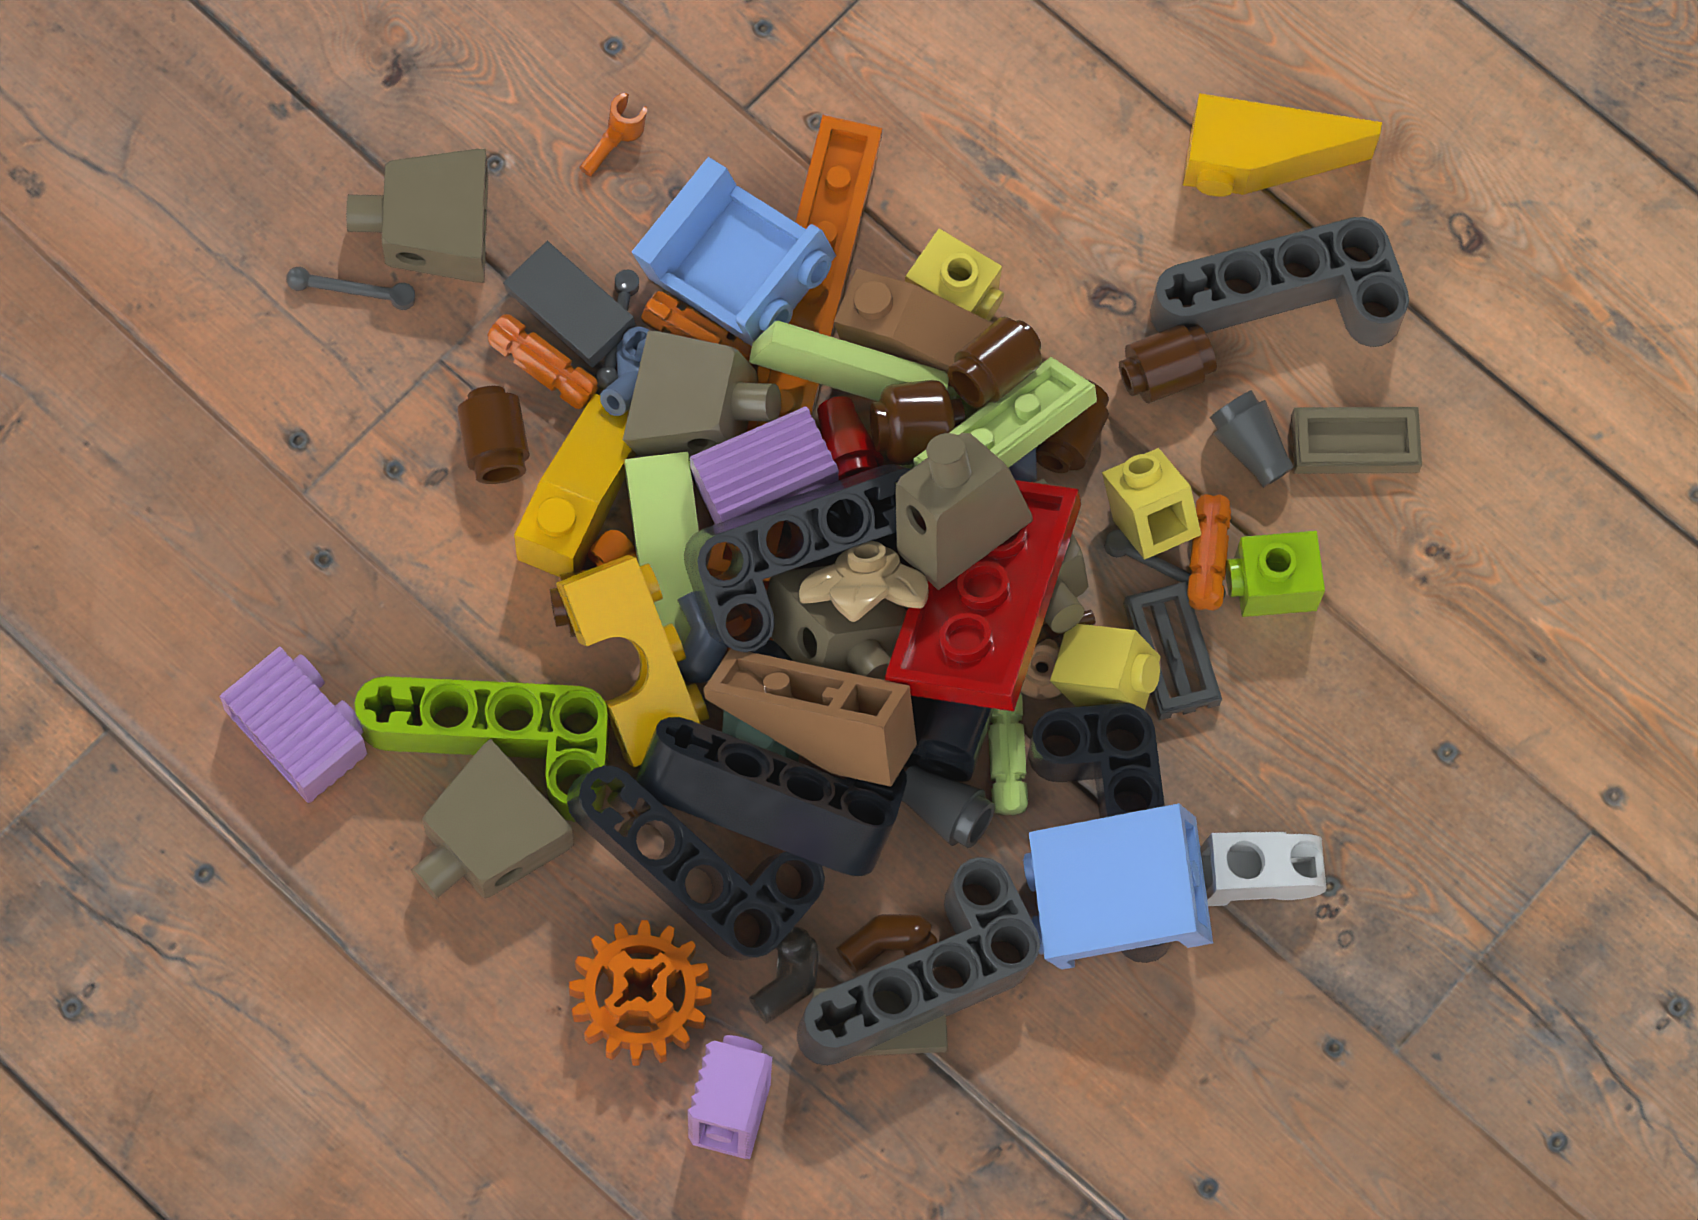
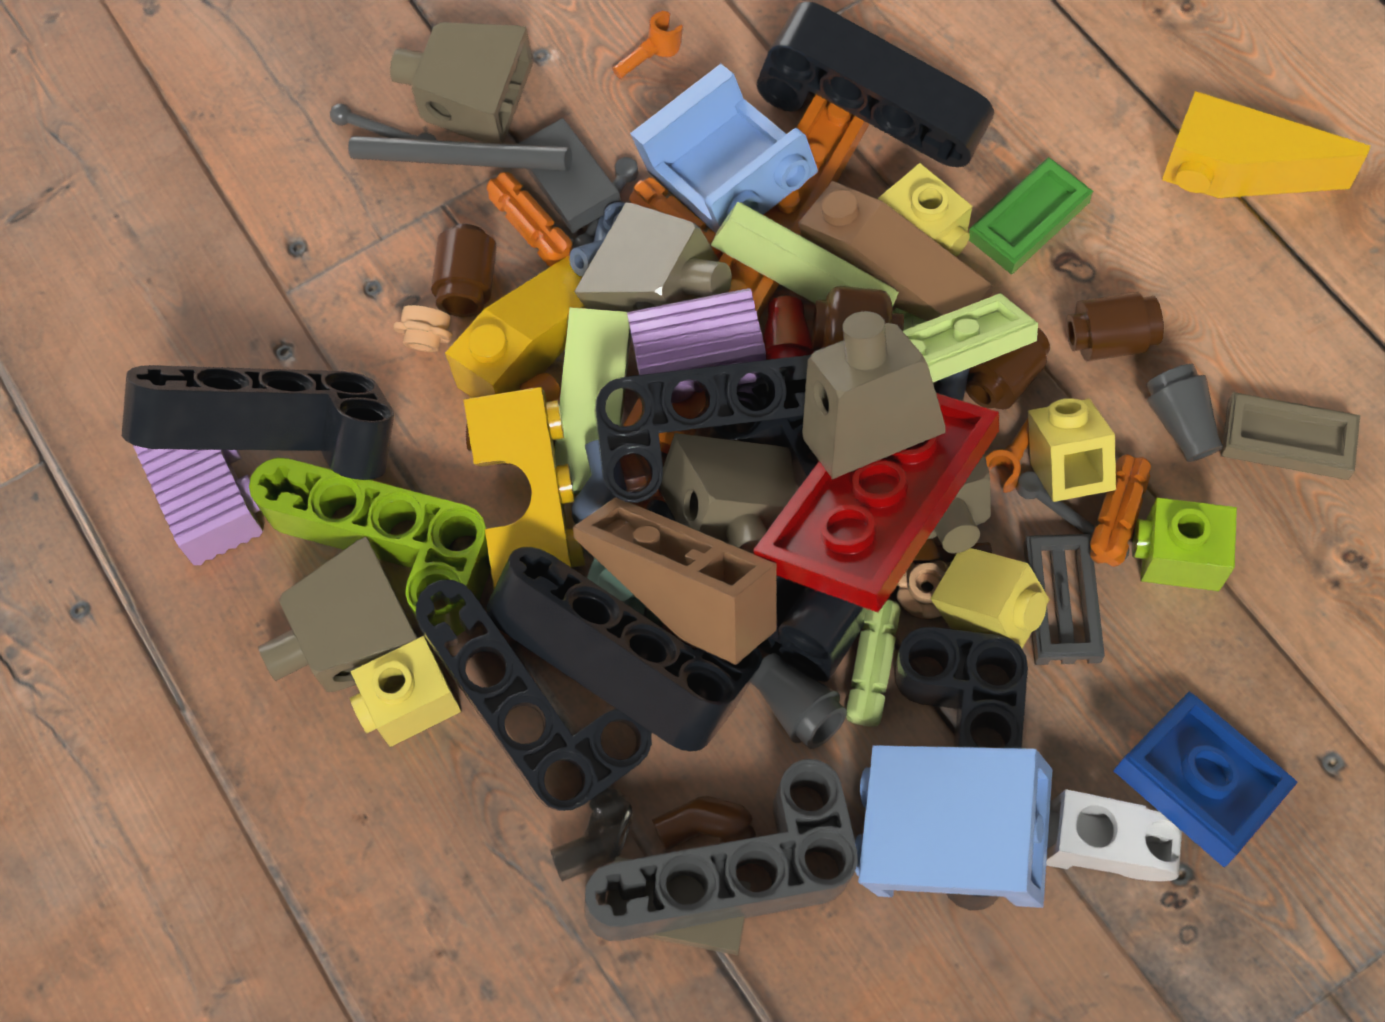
camera: 25 degrees right, 5 degrees down
(357, 632) = (261, 410): none -> black beam
(448, 303) = (460, 153): none -> dark grey bar
(469, 506) = (424, 328): none -> light nougat plate
(568, 882) = (402, 693): none -> light yellow brick
(623, 971) = (416, 828): orange gear -> none
(730, 1096) = (491, 950): lavender brick -> none
(863, 579) = (765, 450): tan plate -> none
(869, 145) = (875, 83): none -> black beam
(995, 362) = (944, 282): reddish brown brick -> none
(1058, 253) = (1030, 215): none -> bright green tile
(1095, 515) = (1011, 457): none -> orange hand
(1278, 291) = (1165, 263): dark grey beam -> none
(1334, 792) = (1206, 778): none -> blue plate

